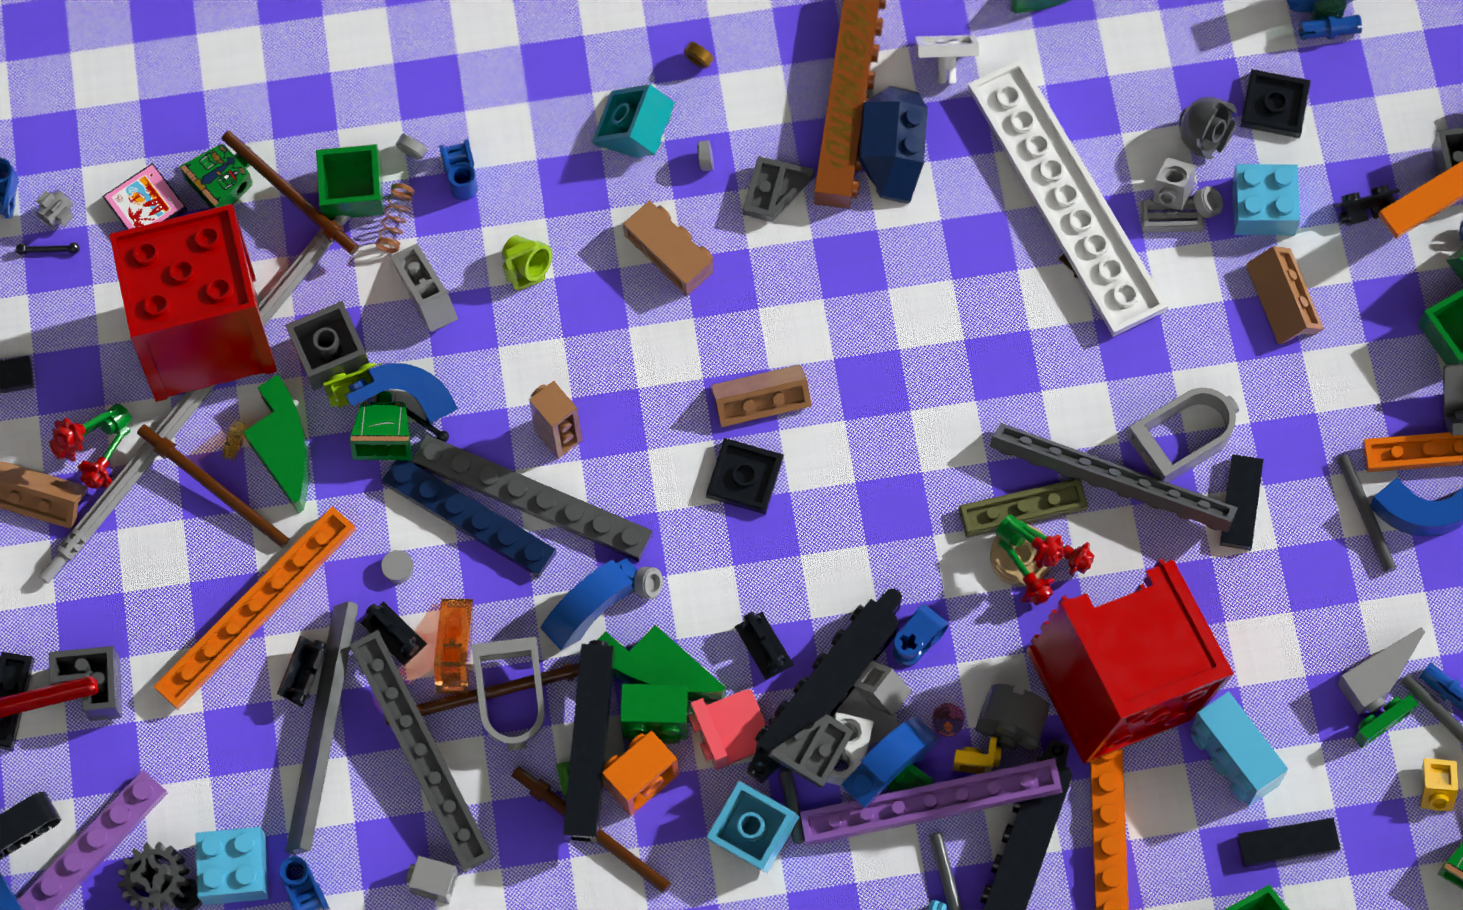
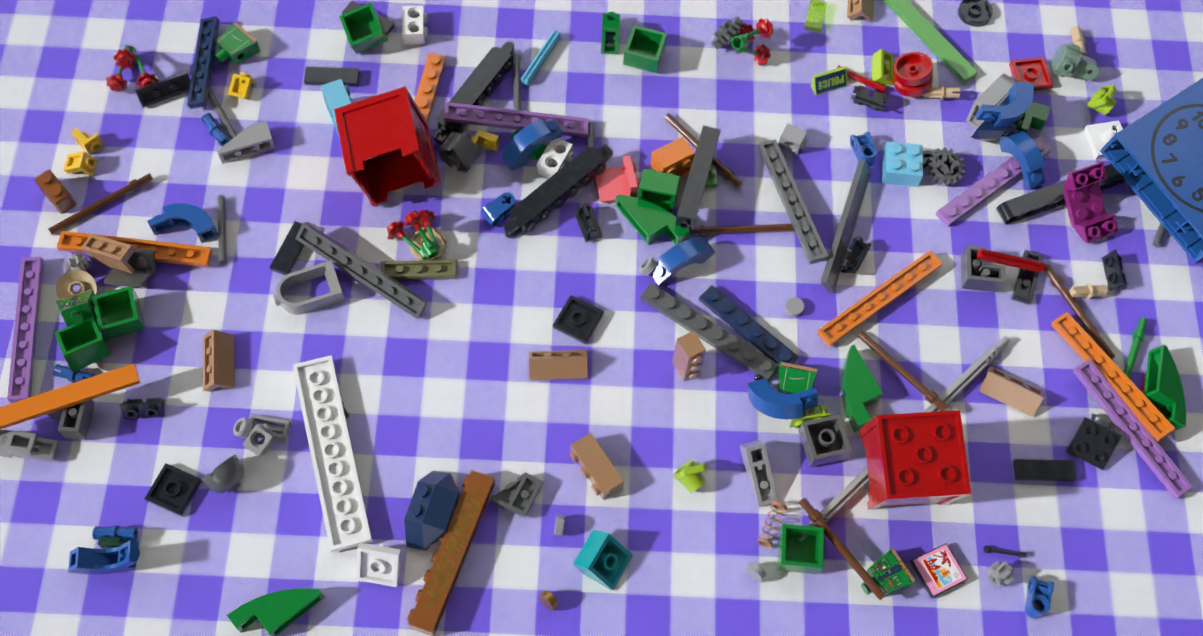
camera: 175 degrees left, 5 degrees down
(69, 436) = (995, 413): red plant -> none
(234, 440) = (887, 397): clear yellow tile -> none
(396, 634) = (800, 269): black hinge -> none
(454, 646) = (766, 255): clear orange slope -> none
(459, 165) = (725, 554): blue piece -> none
(504, 650) = (738, 236): light grey window -> none
(753, 827) = (615, 126): medium azure brick -> none
(814, 749) = (574, 148): dark grey wing -> none
(882, 688) = (527, 181): light grey brick -> none
(948, 720) = (494, 167): clear pink tile -> none
(1265, 199) = (206, 419): medium azure brick -> none
(1395, 712) = (260, 115): green plate -> none

